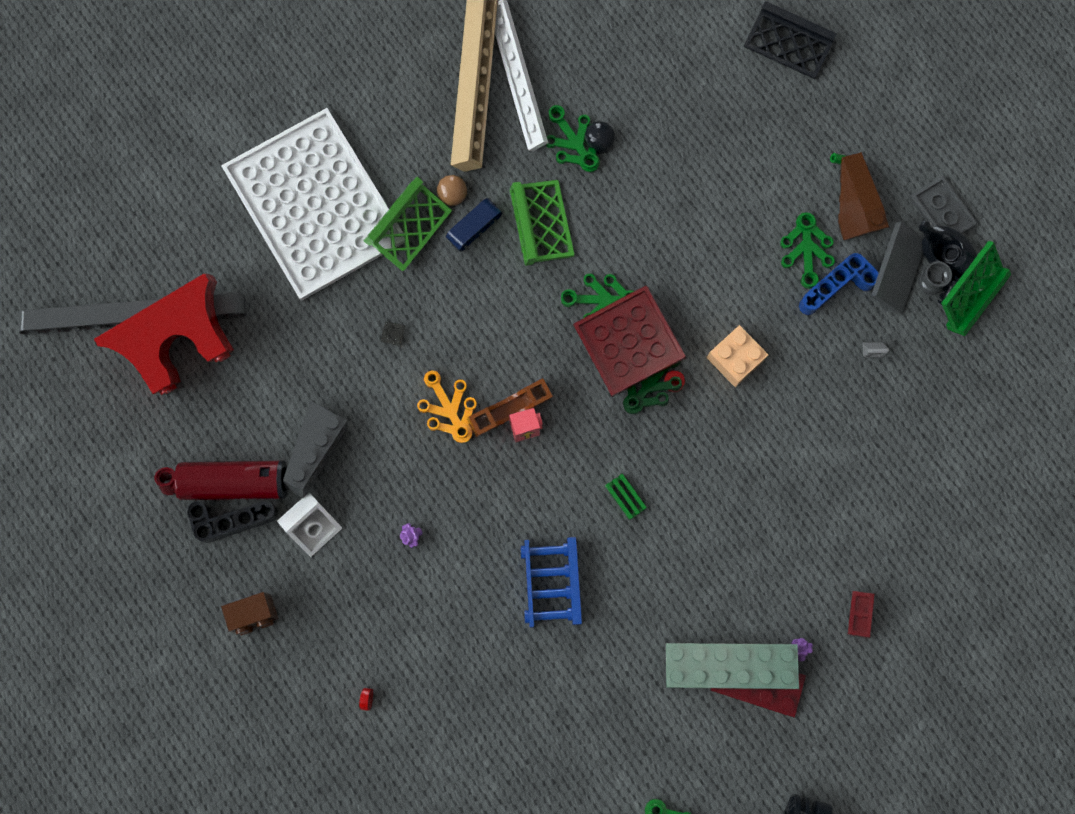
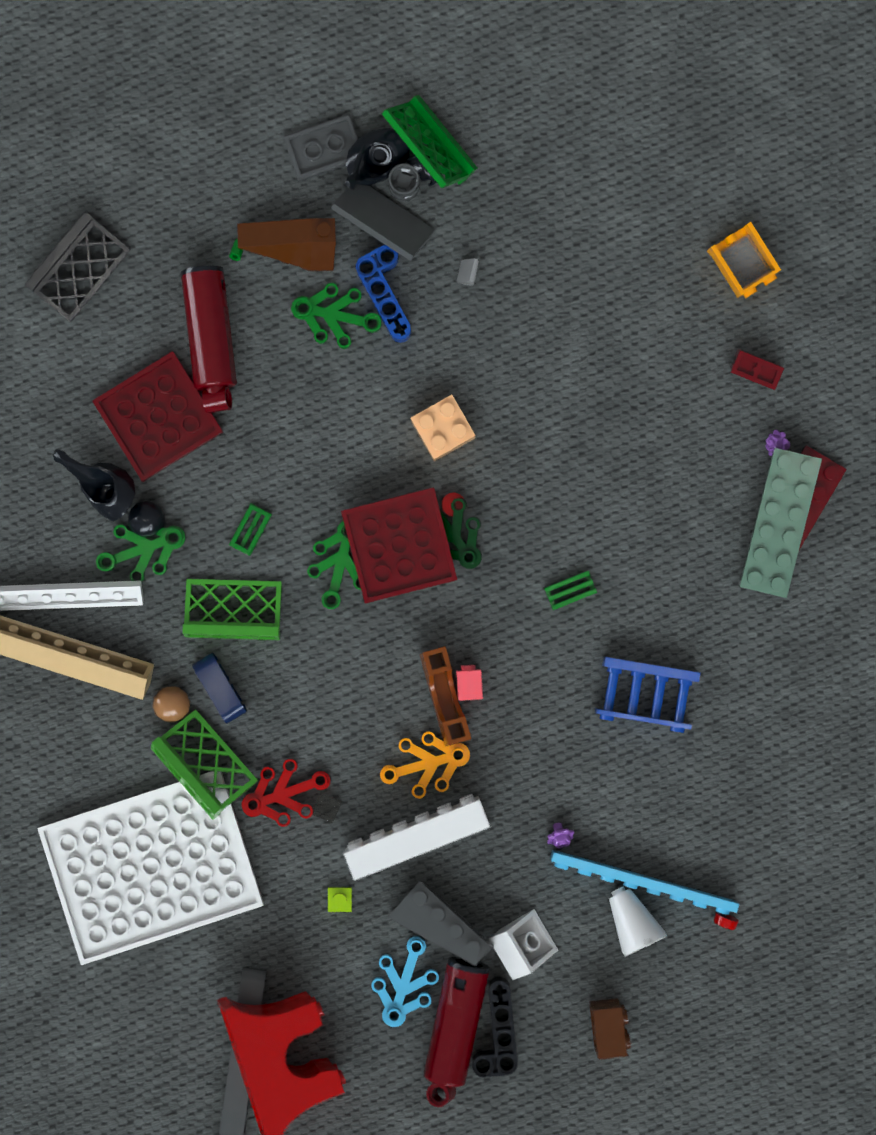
camera: 75 degrees left, 10 degrees up
(254, 430) = (403, 986): none -> medium azure plant
(317, 361) = (339, 899): none -> lime plate
(347, 616) = (633, 922): none -> white cone
(381, 406) = (416, 837): none -> white brick
(385, 607) = (653, 885): none -> medium azure plate
(397, 294) = (281, 794): none -> red plant
(593, 224) = (240, 528): none -> green tile
(618, 97) = (104, 485): none -> black hat
(685, 128) = (157, 416): none -> dark red plate
(763, 151) = (209, 335): none -> dark red piece
(952, 583) = (745, 261): none -> window

